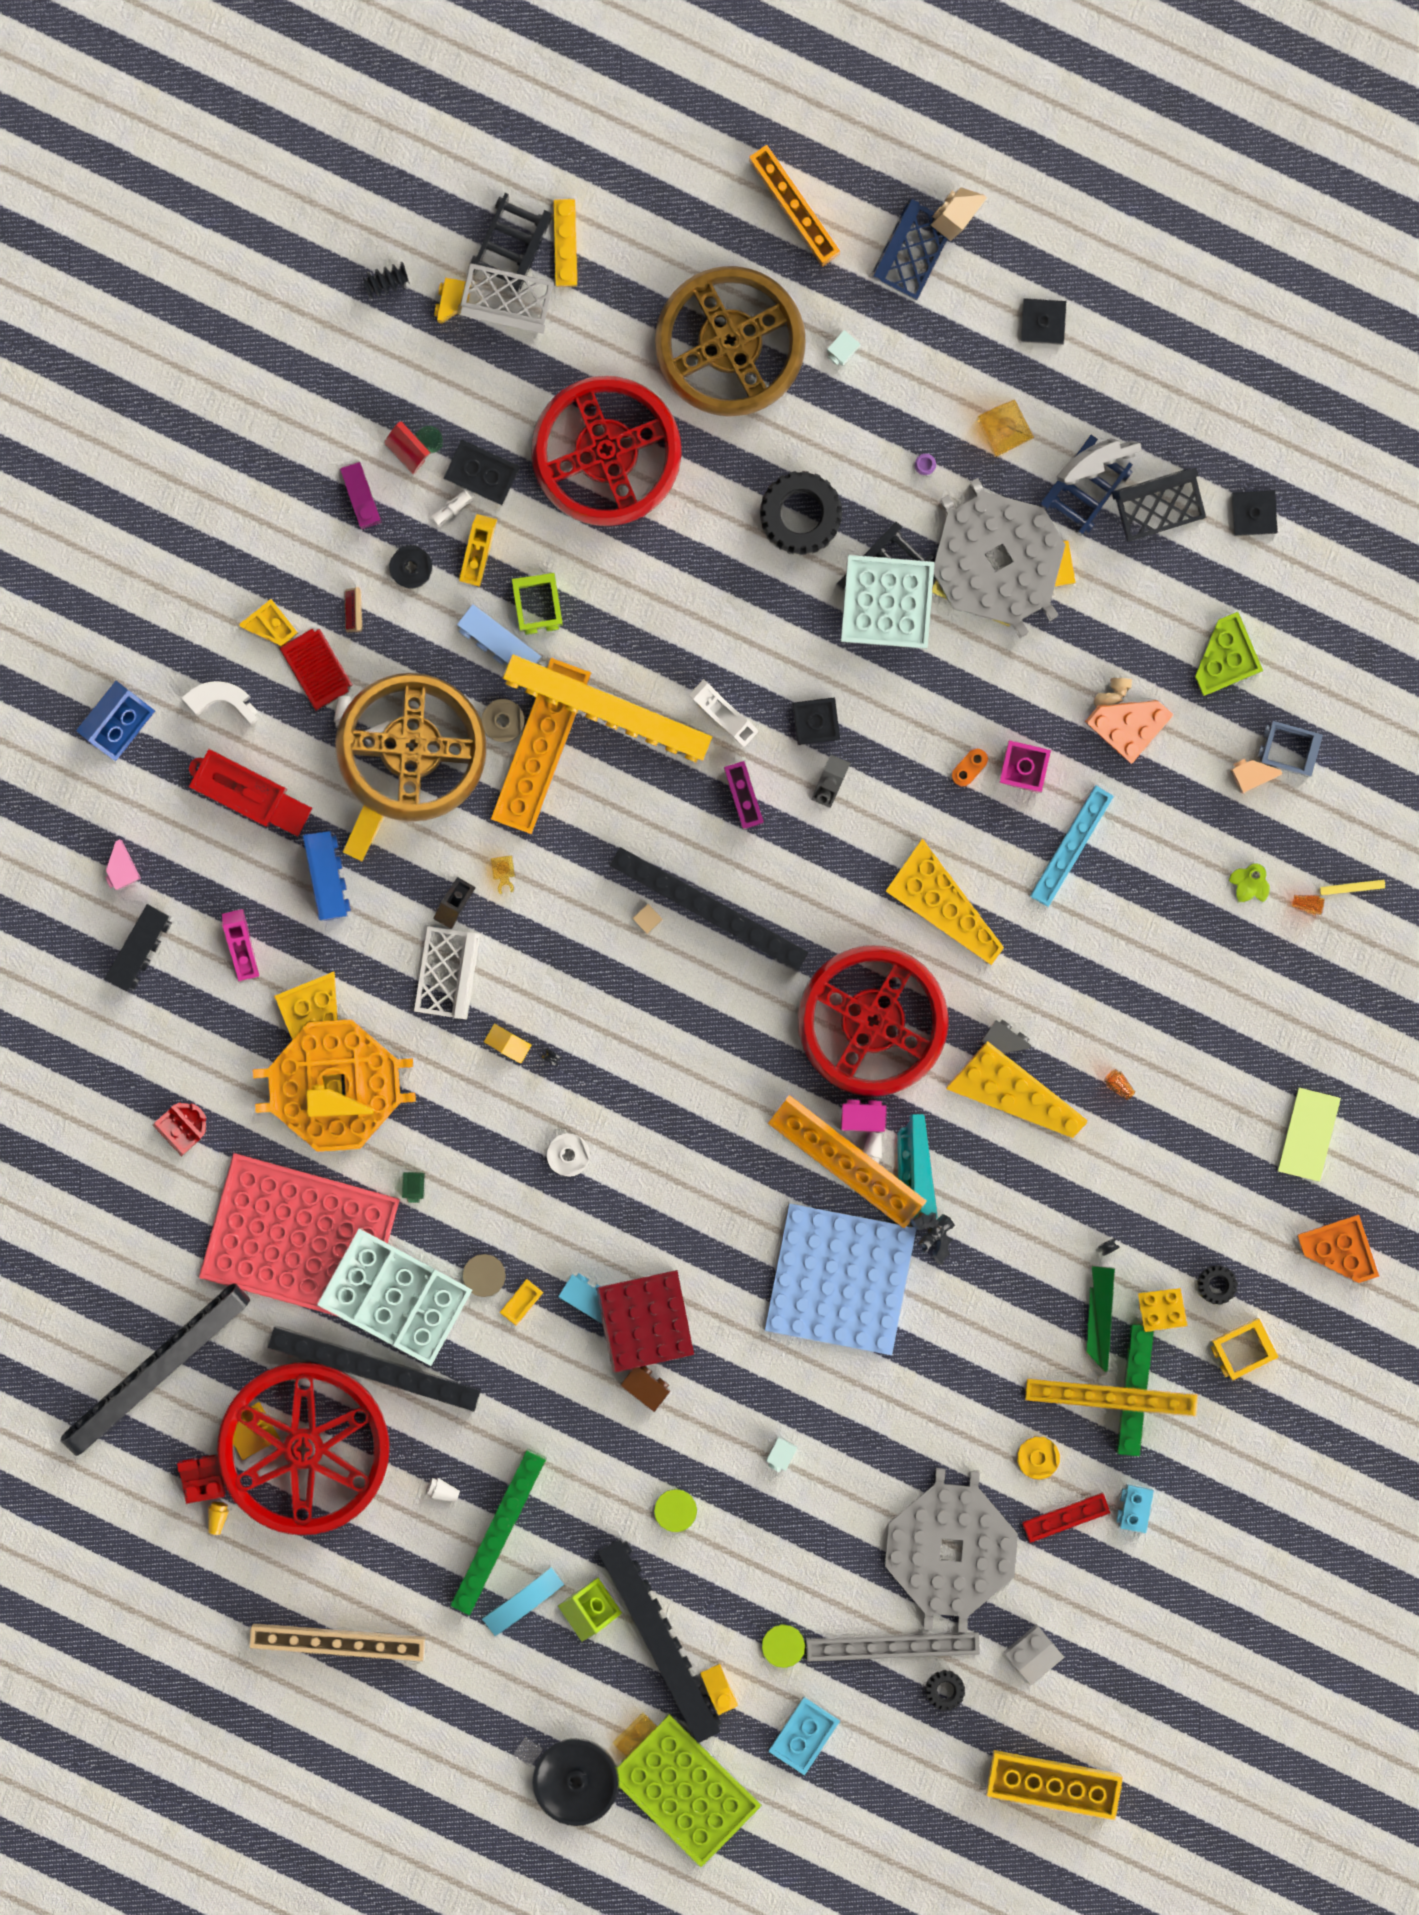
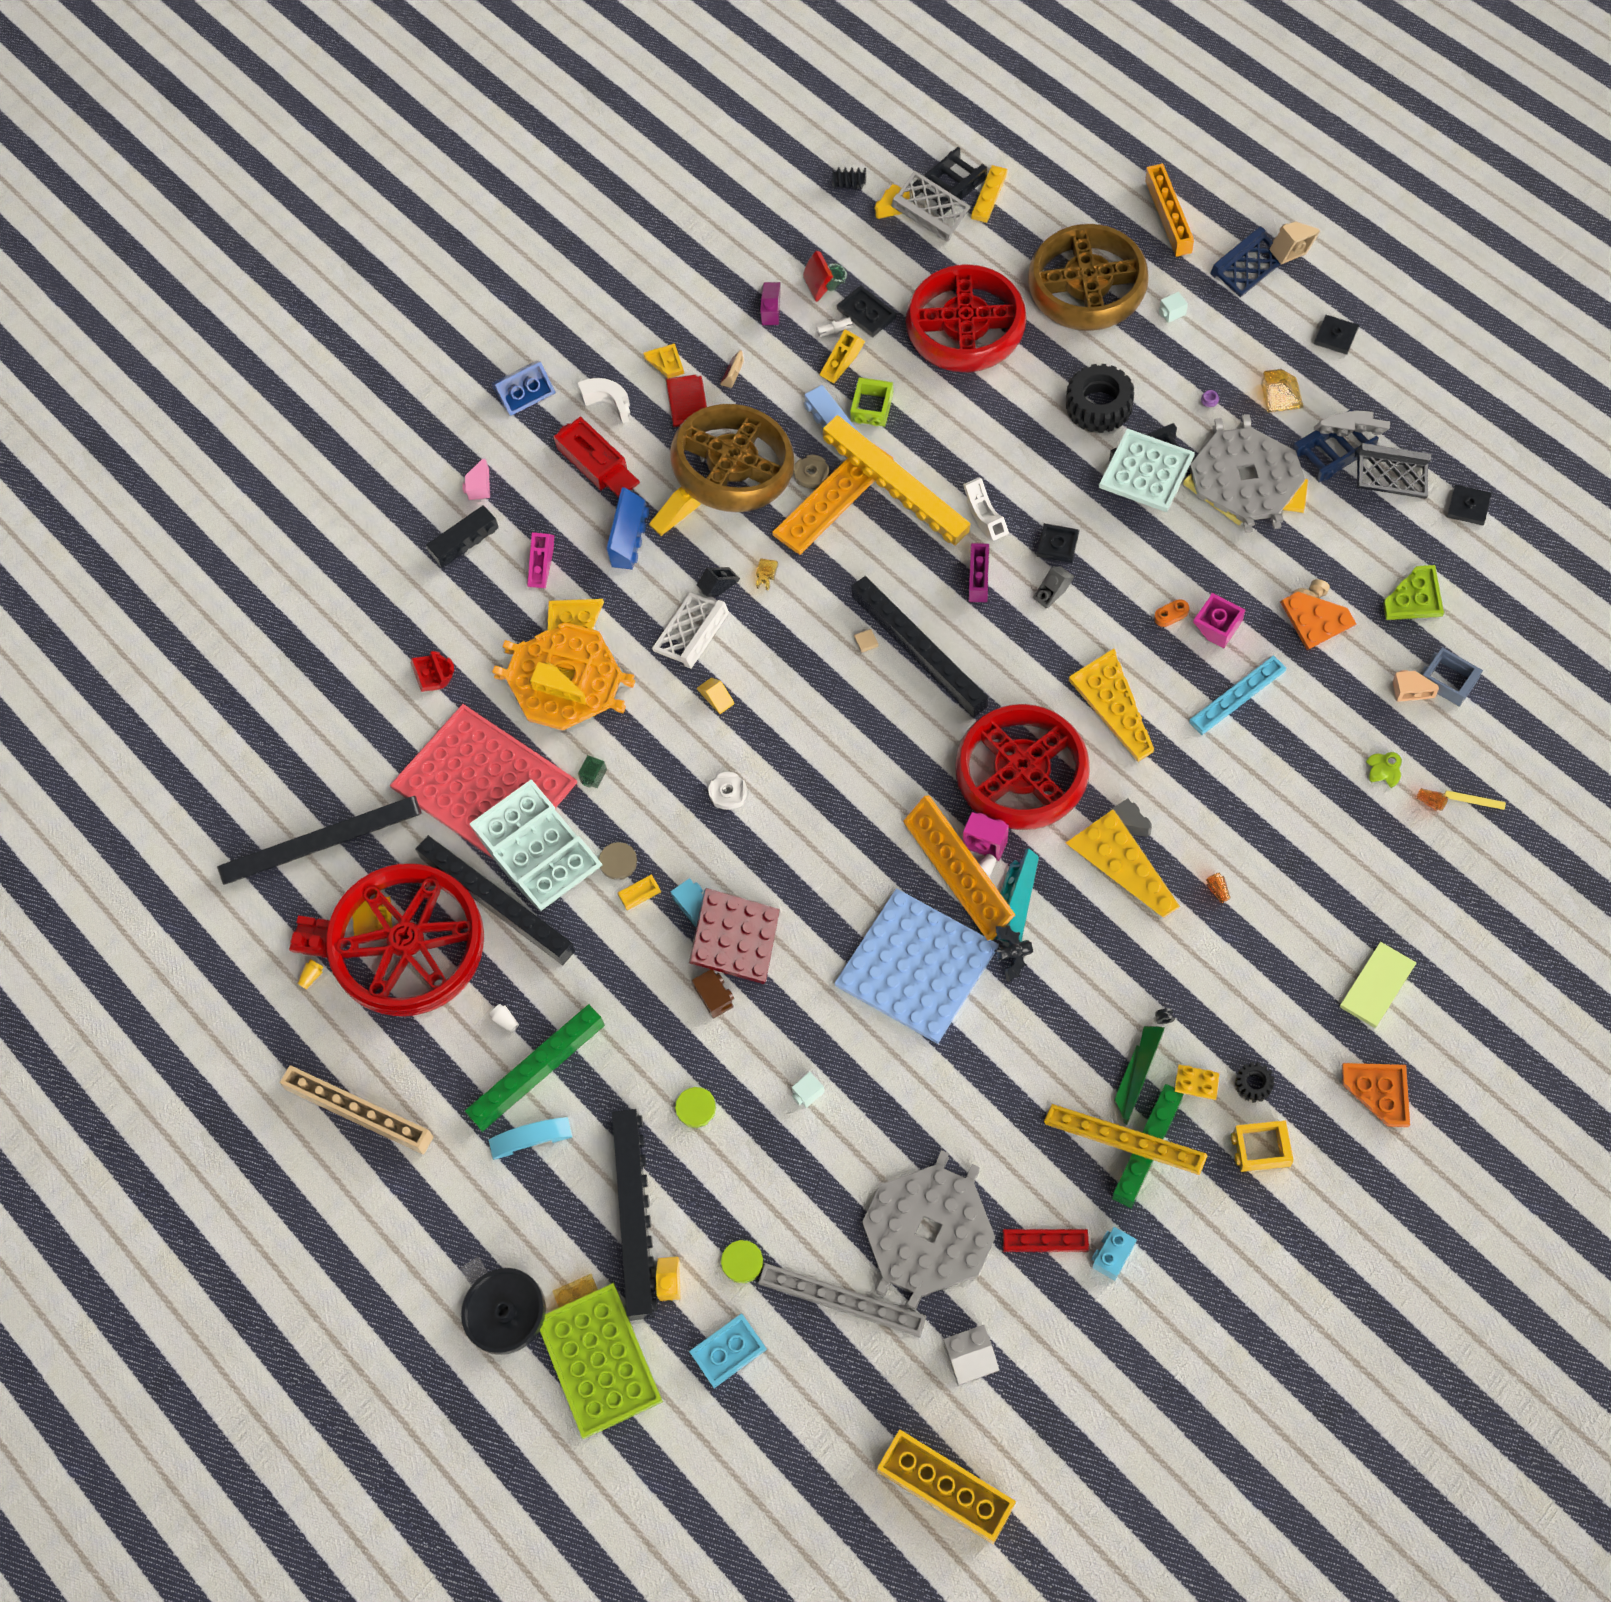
camera: 30 degrees right, 25 degrees down
(404, 577) = (790, 362): black plate -> none
(551, 1057) = (746, 714): black bush -> none
(590, 1609) = (583, 1163): lime slope -> none
(935, 1681) = (875, 1344): black tyre -> none
(1038, 1457) = (1038, 1178): yellow tile -> none

